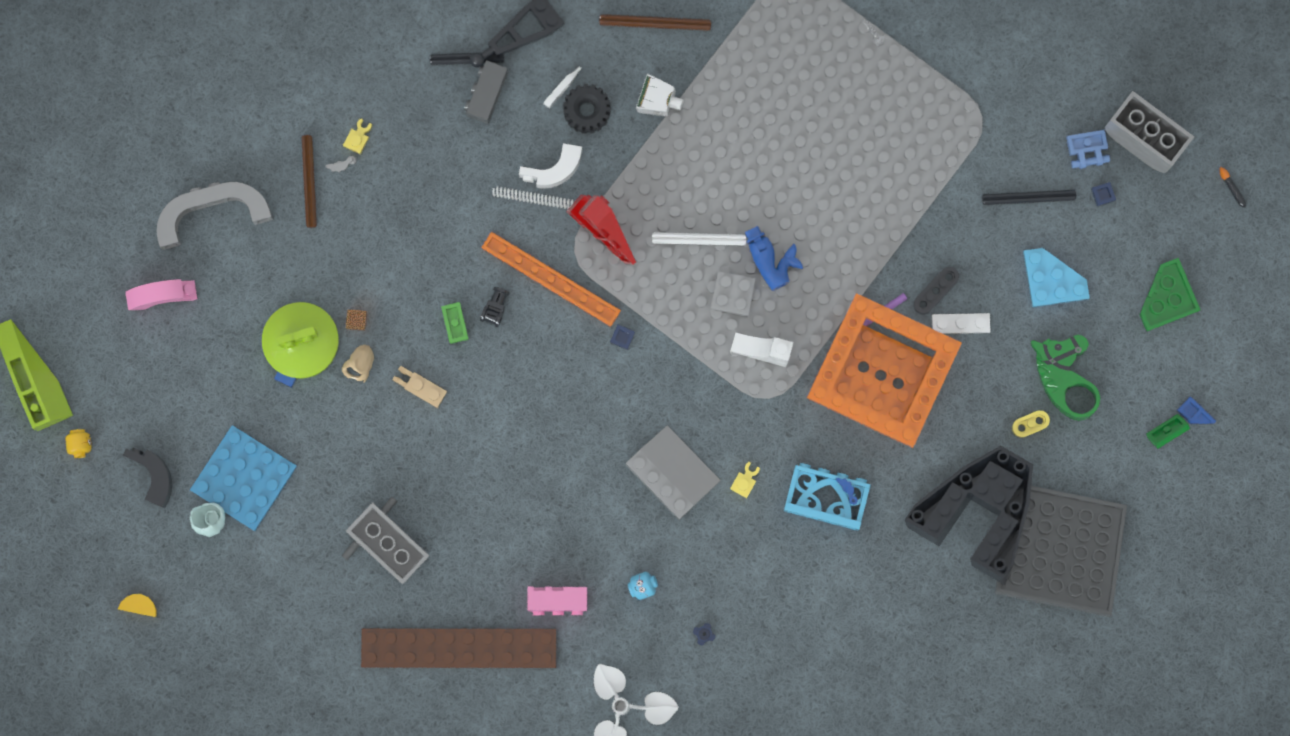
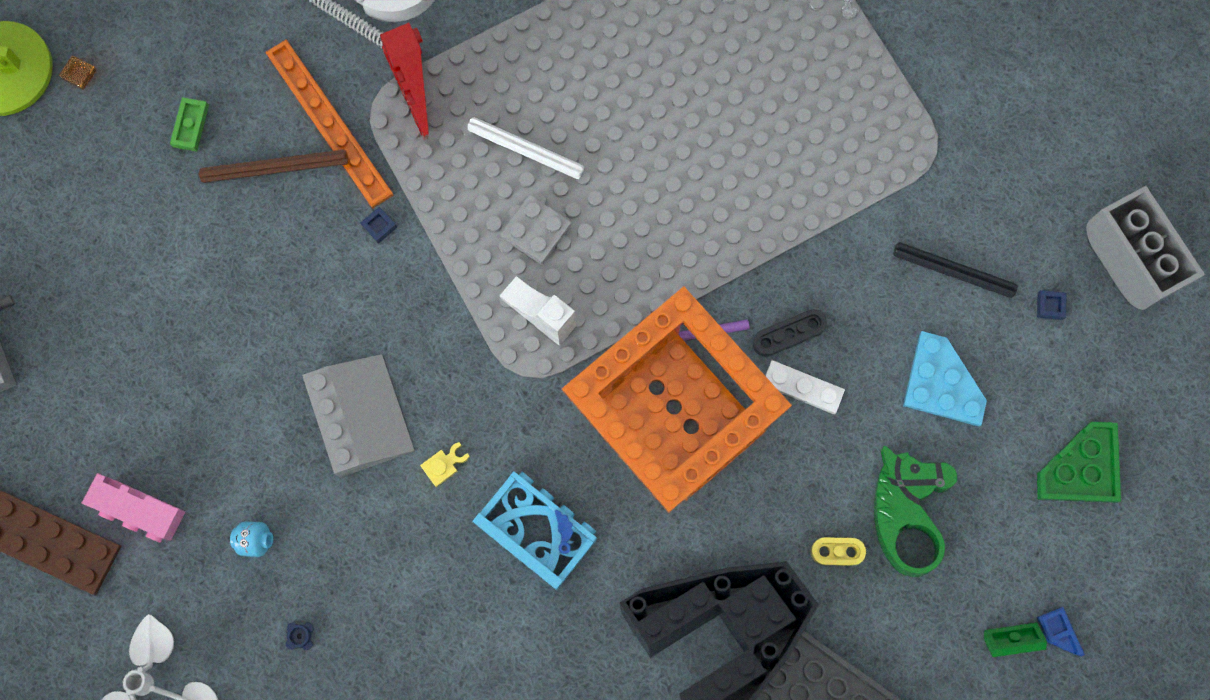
camera: 25 degrees right, 5 degrees down
(361, 362) = (53, 121): tan piece -> none
(421, 387) = (112, 183): tan hinge -> none
(495, 308) = (244, 126): black connector -> none
(529, 327) = (273, 166): none -> reddish brown axle
(764, 258) = (593, 200): blue piece -> none
(1087, 143) = (1055, 235): medium blue plate -> none

